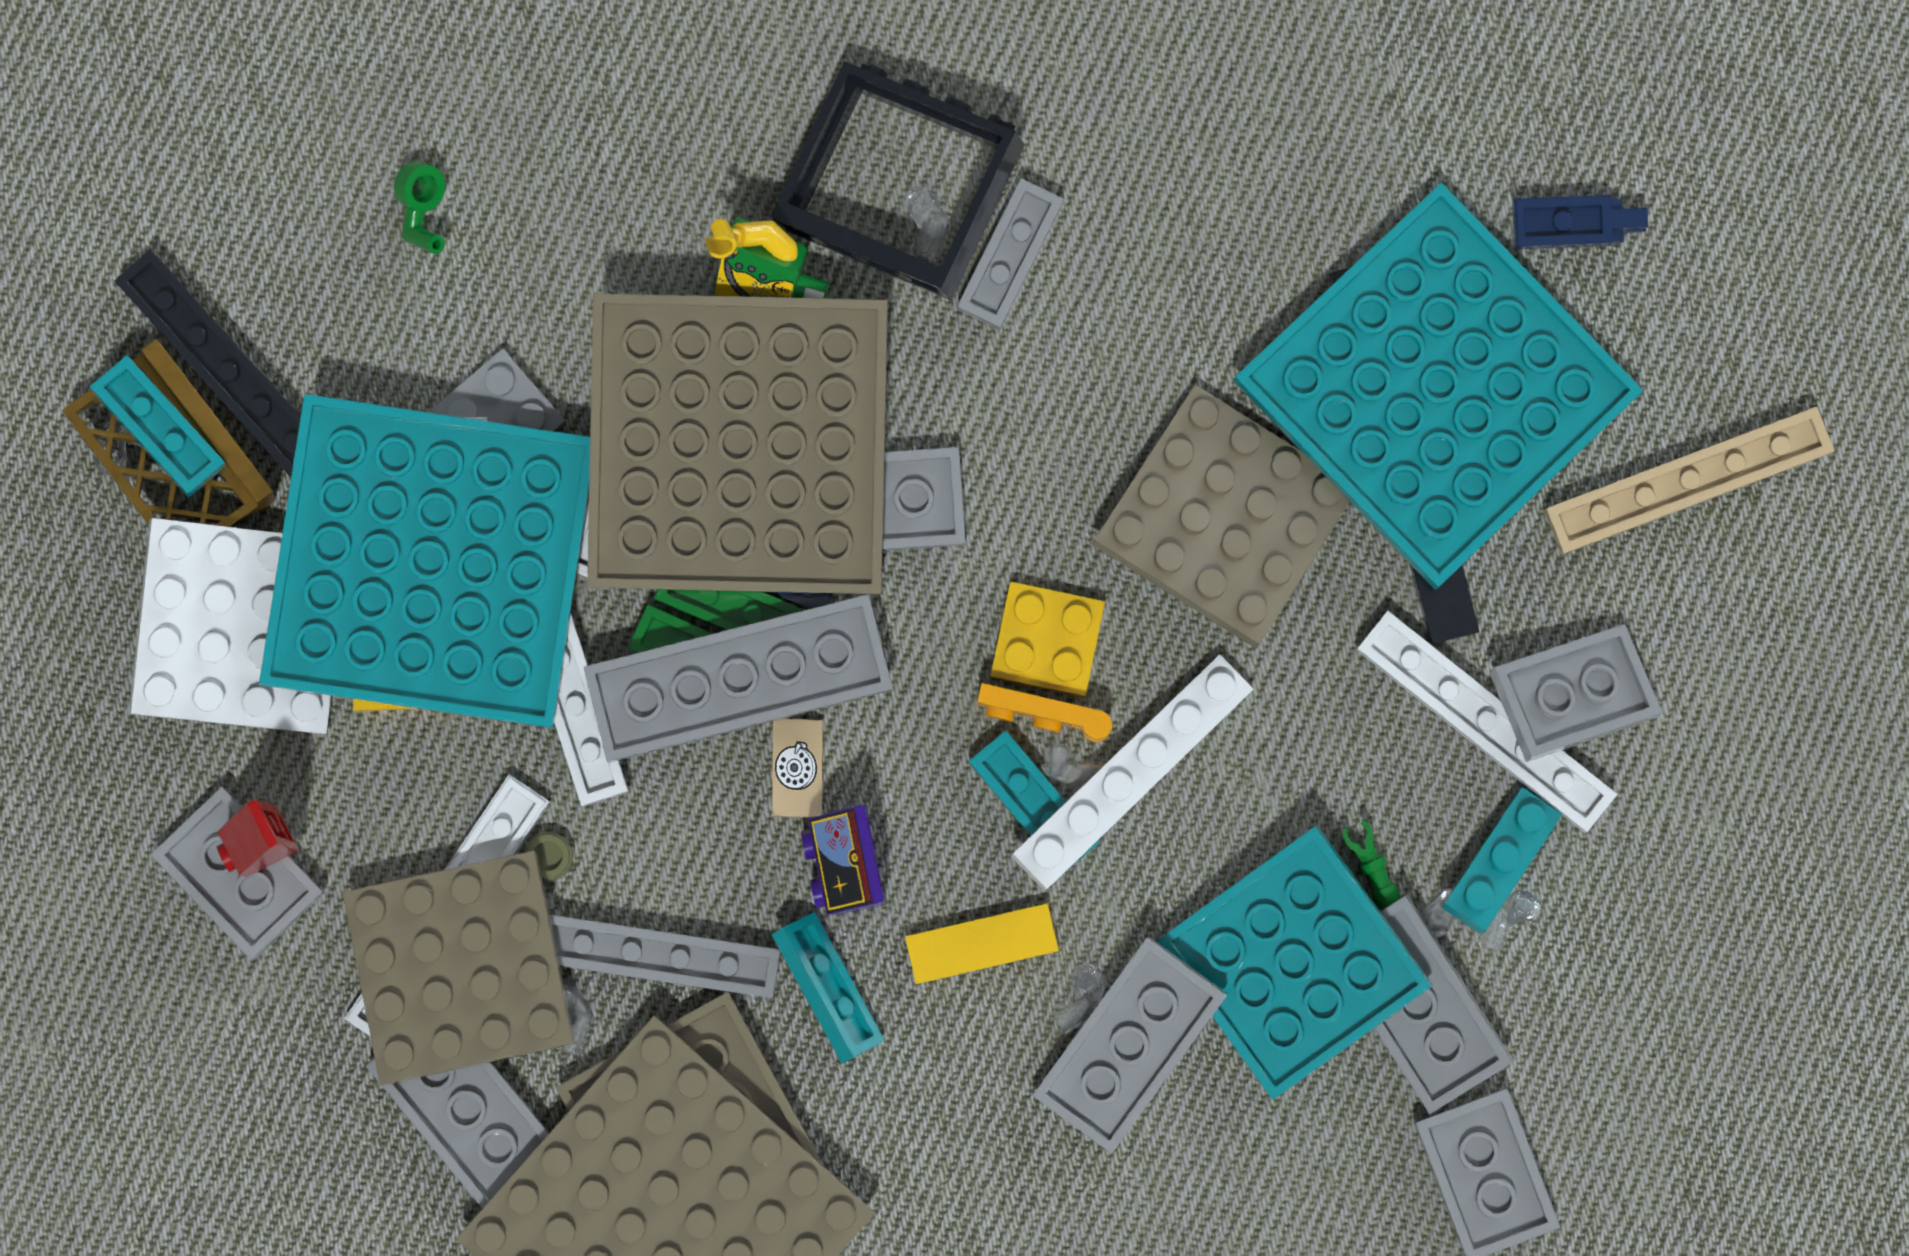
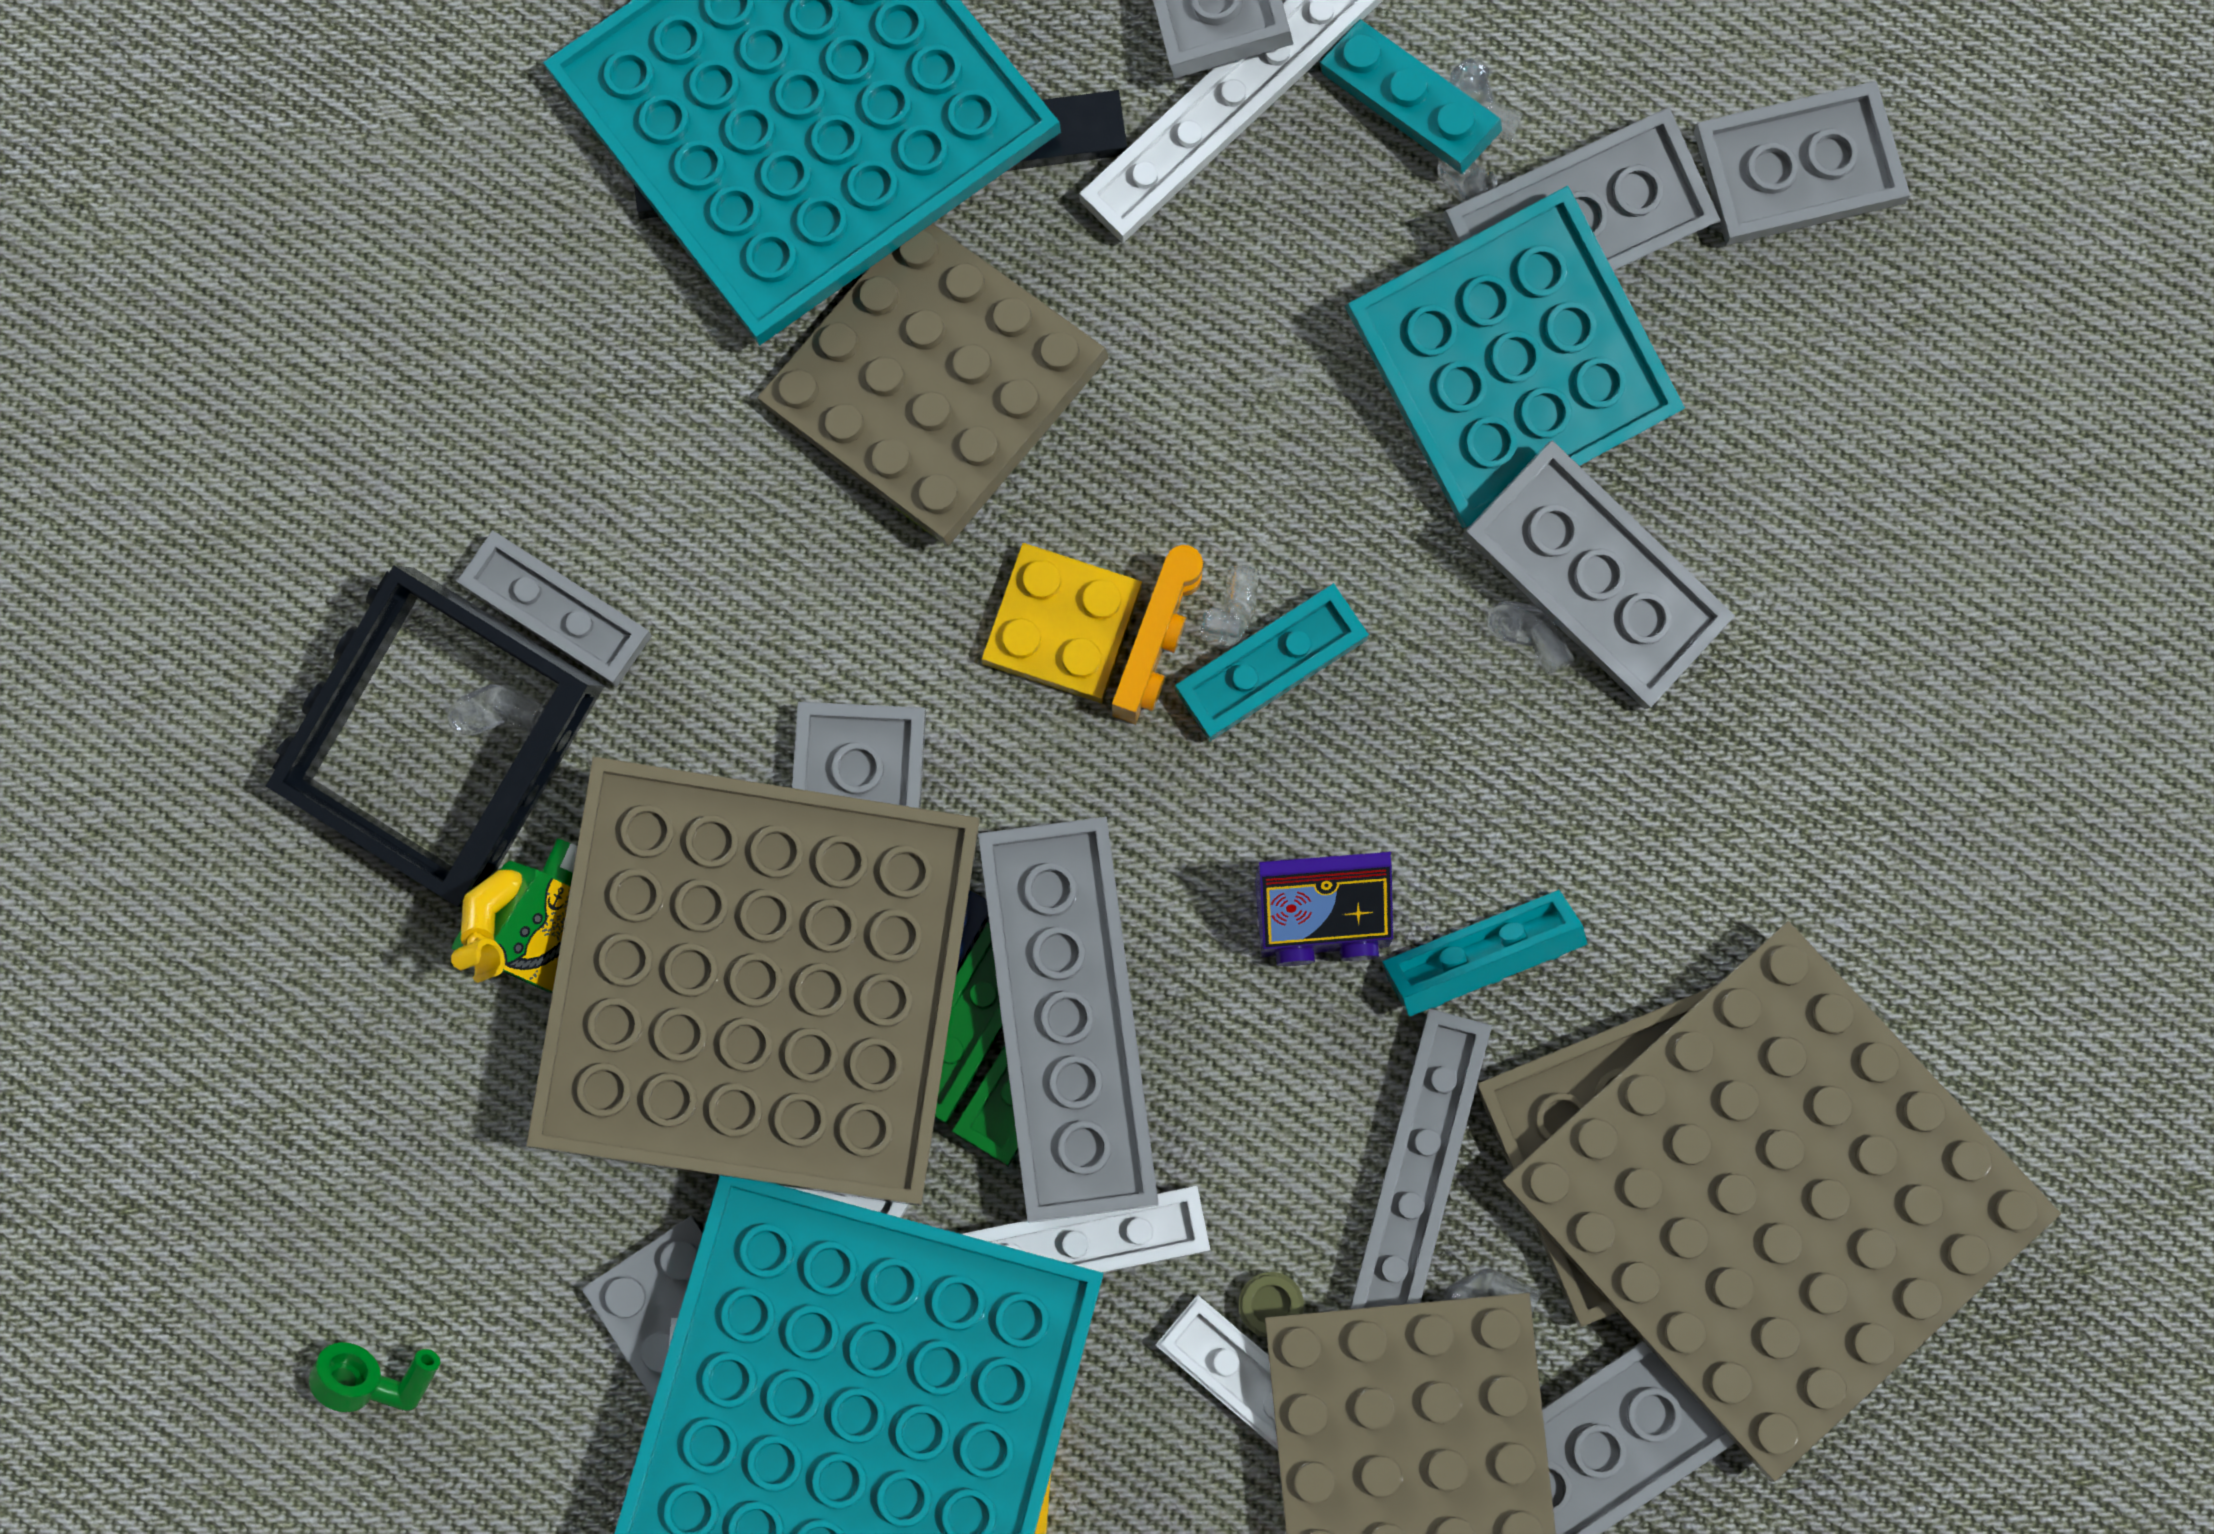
camera: 80 degrees left, 5 degrees down
(797, 768) = (1192, 962): tan slope -> none
(981, 943) = (1446, 752): yellow tile -> none
(1131, 772) = (1250, 533): white plate -> none
(1372, 865) = (1399, 253): green piece -> none

